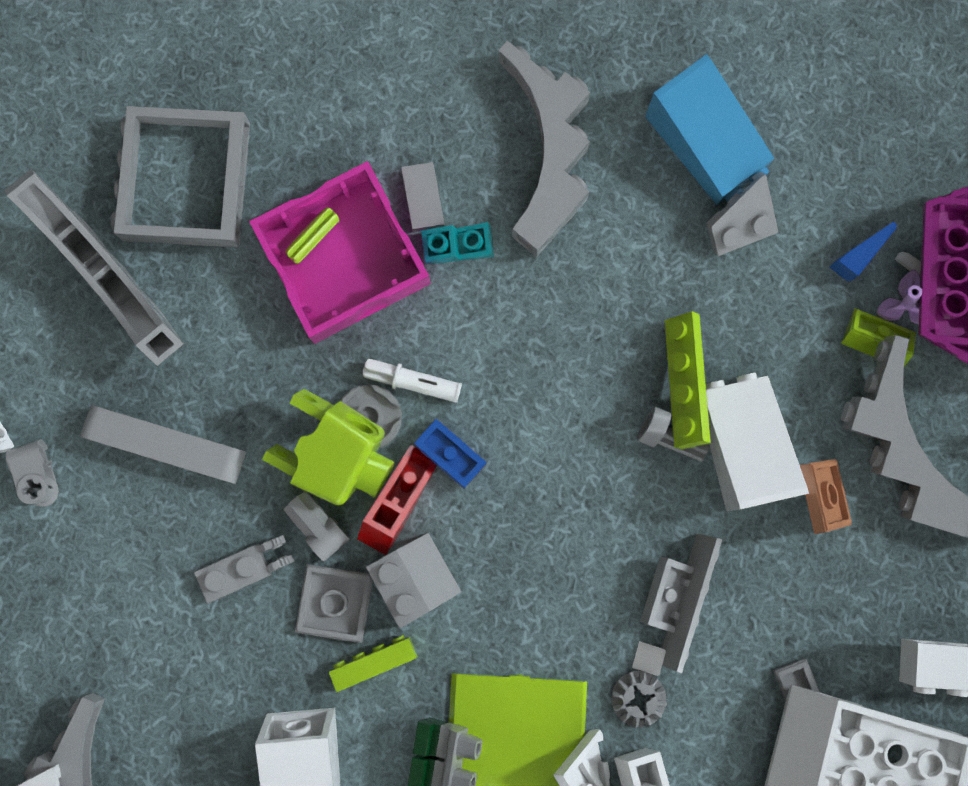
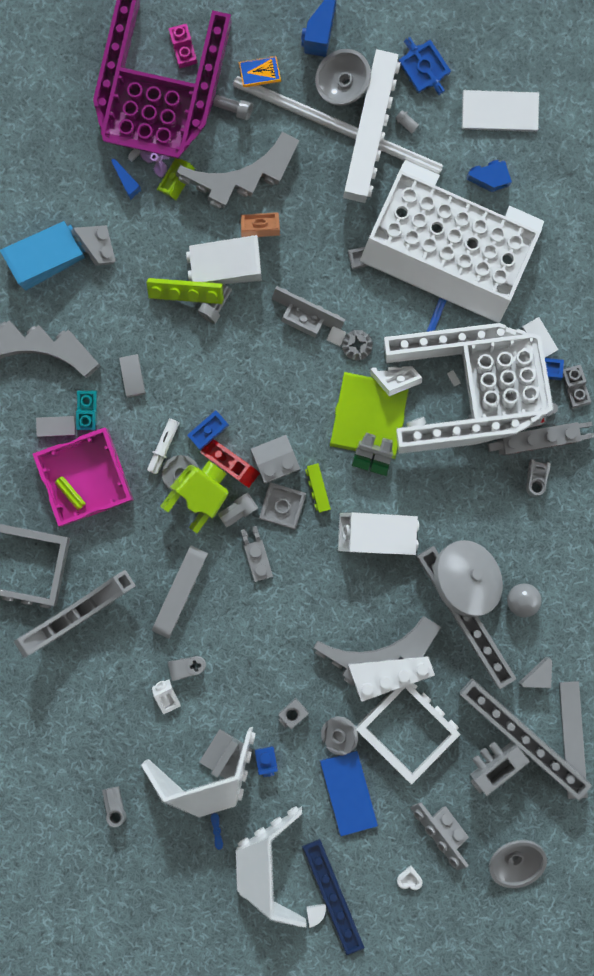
camera: 85 degrees left, 5 degrees up
(526, 311) = (132, 376): none -> light grey slope

